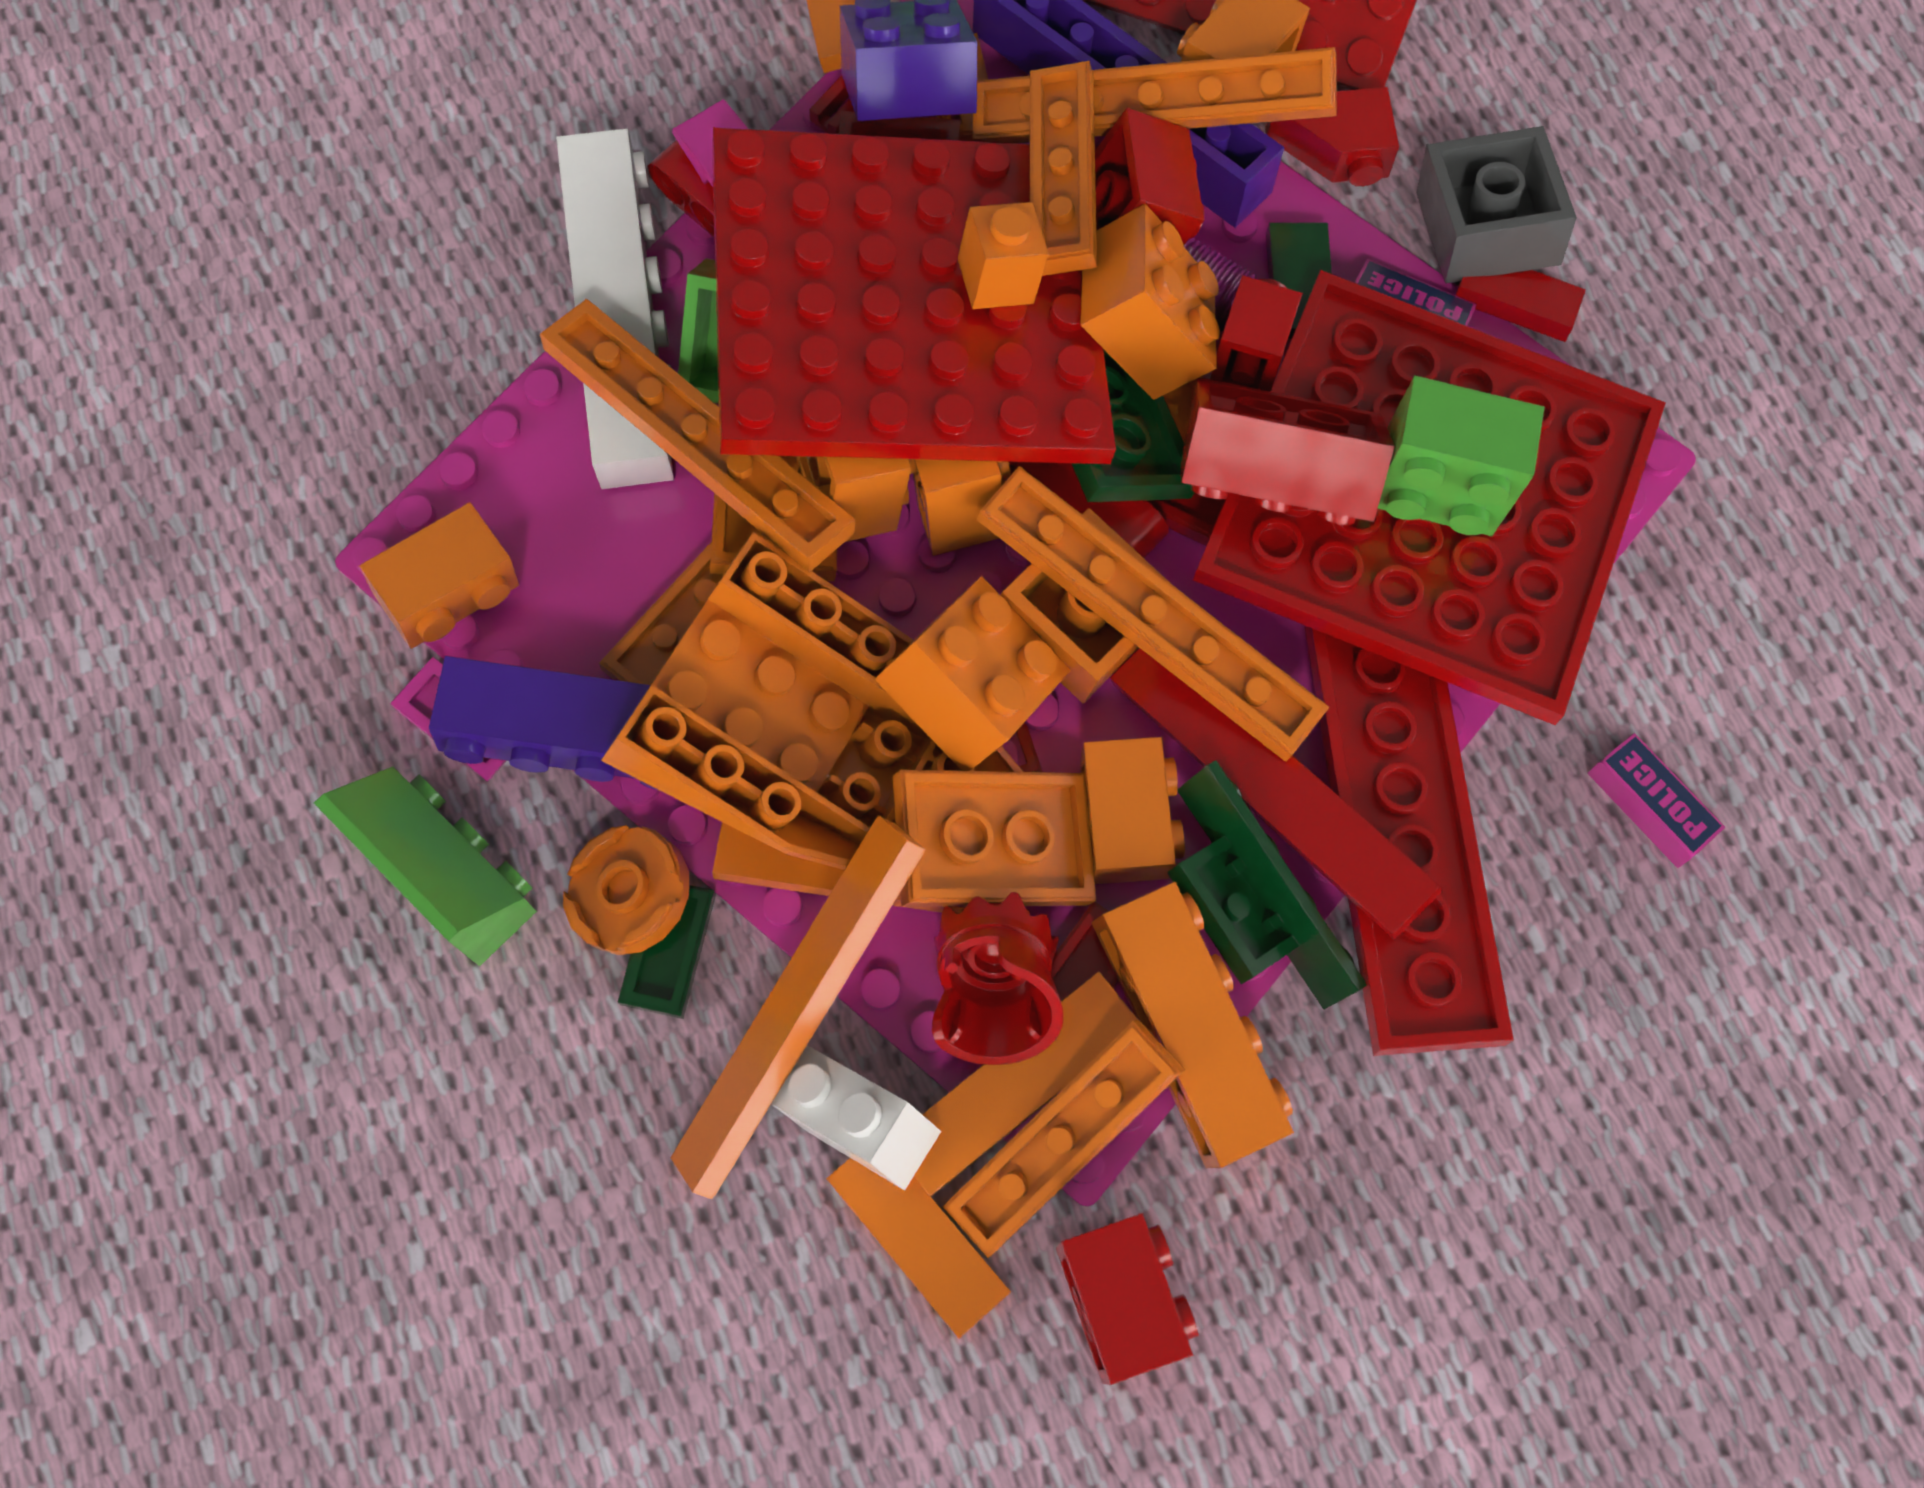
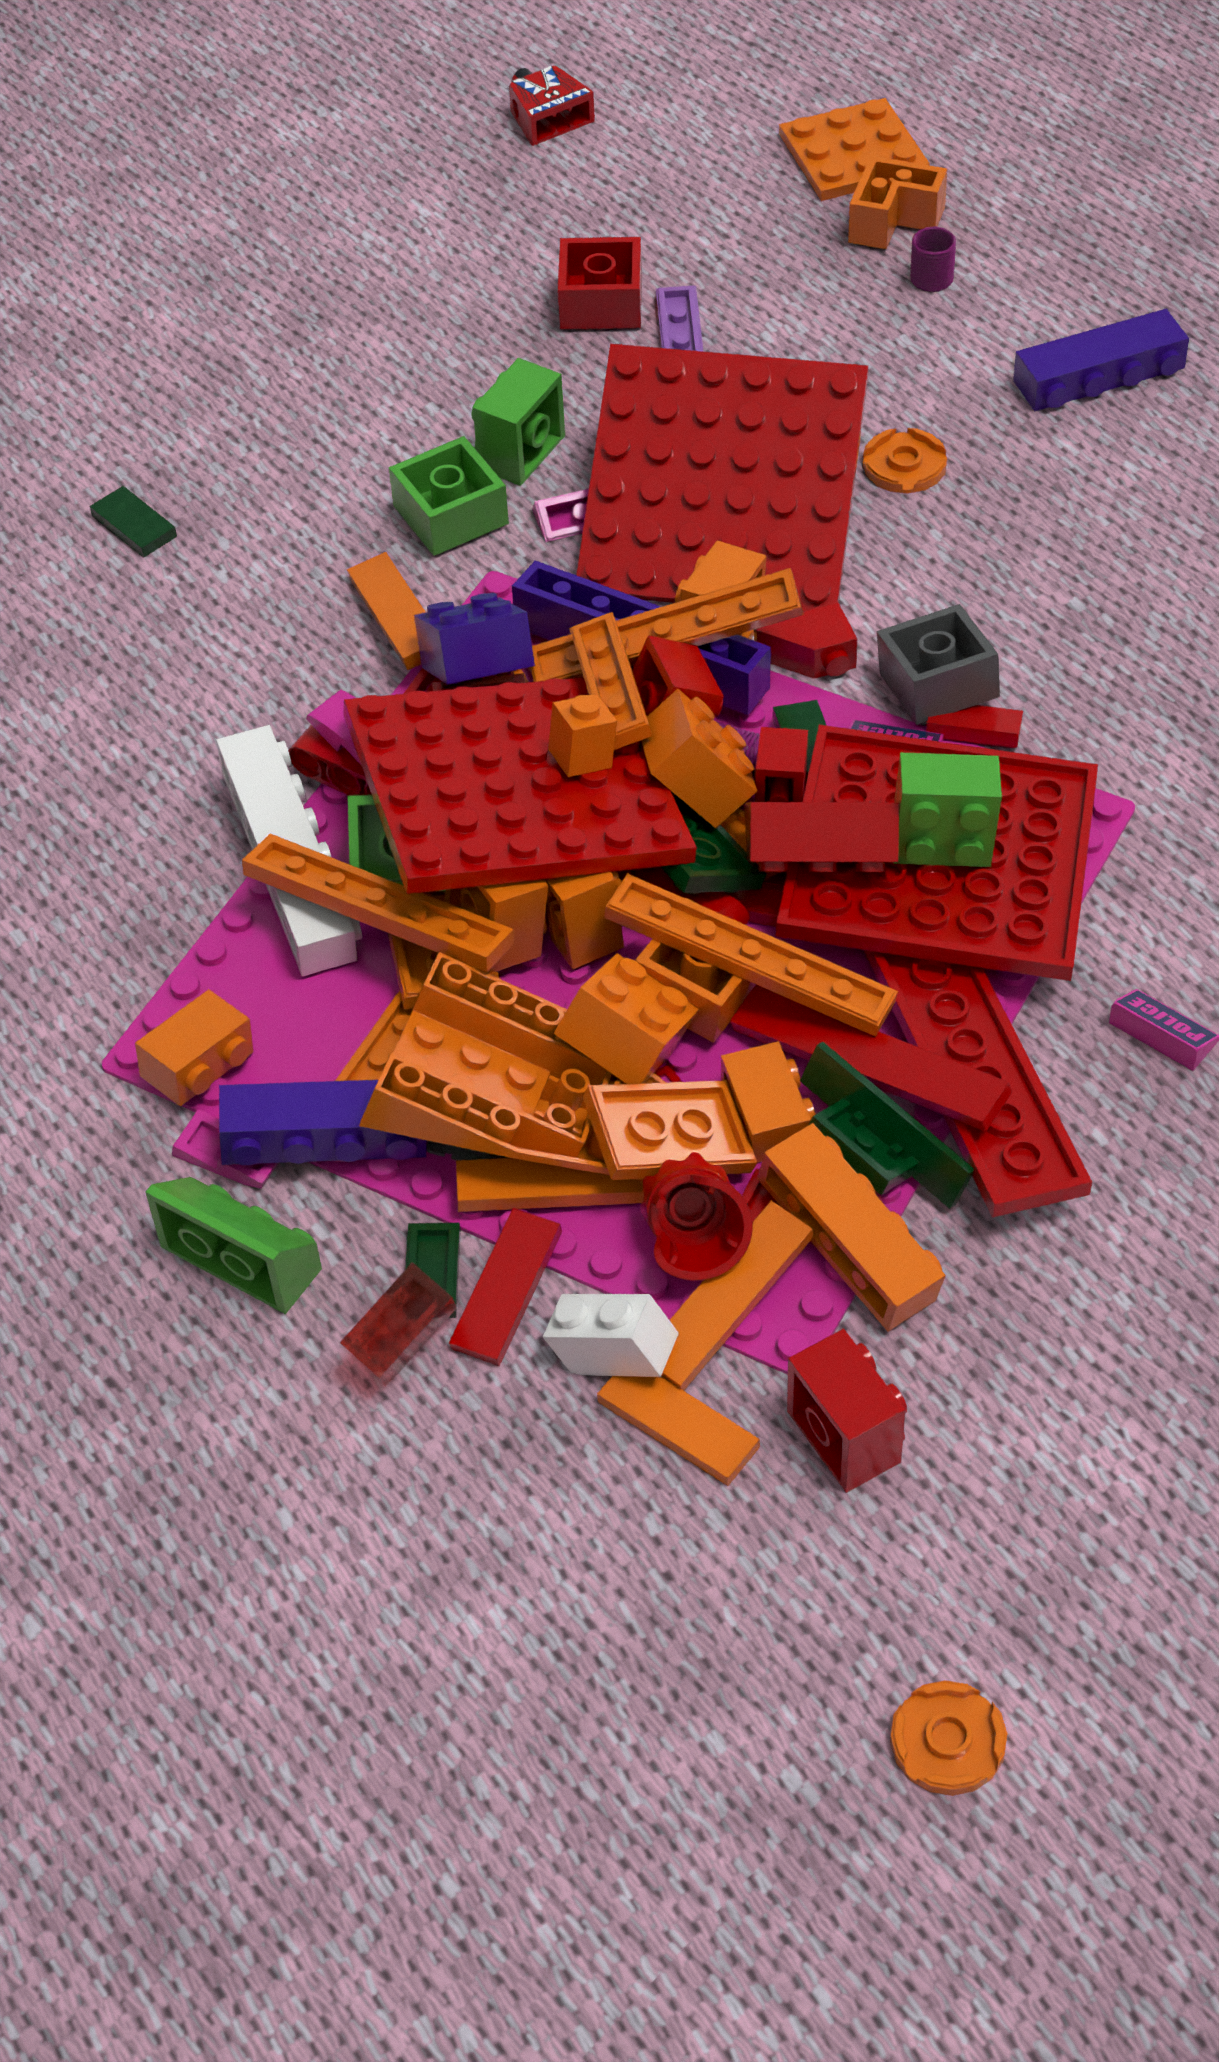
camera: 10 degrees left, 20 degrees down
(598, 1042) = (399, 1324): none -> clear red brick
(626, 890) = (391, 1232): orange tile -> none
(737, 998) = (506, 1287): none -> red tile
(796, 1006) = (546, 1265): orange tile -> none
(1063, 1137) = (772, 1319): orange tile -> none

